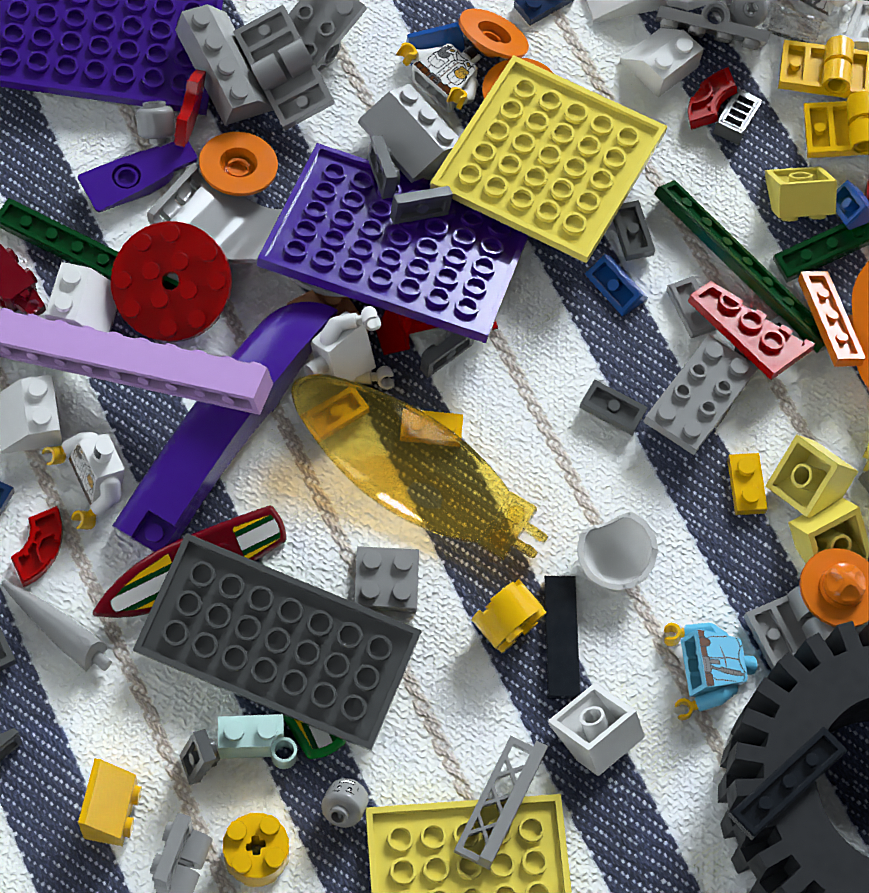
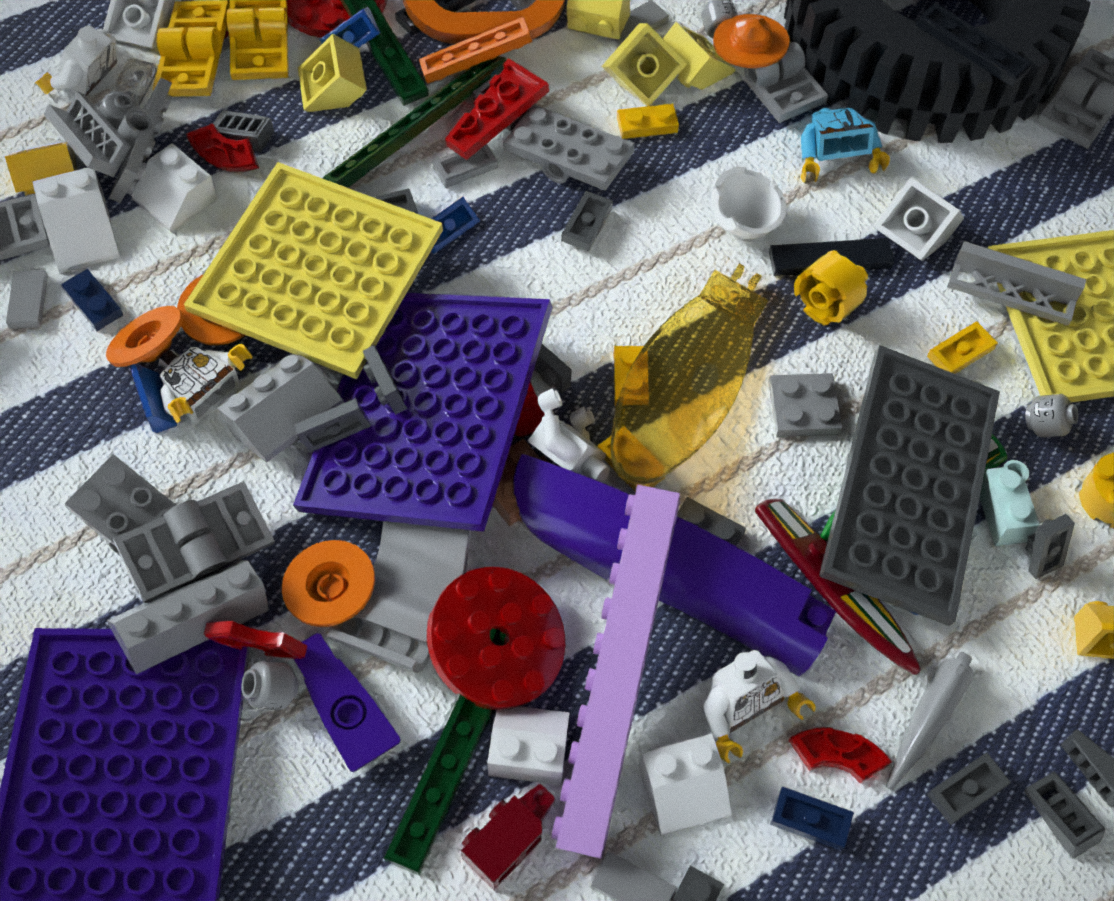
camera: 90 degrees left, 5 degrees down
(264, 472) = (711, 521): none -> dark grey plate
(435, 740) = (962, 348): none -> yellow plate

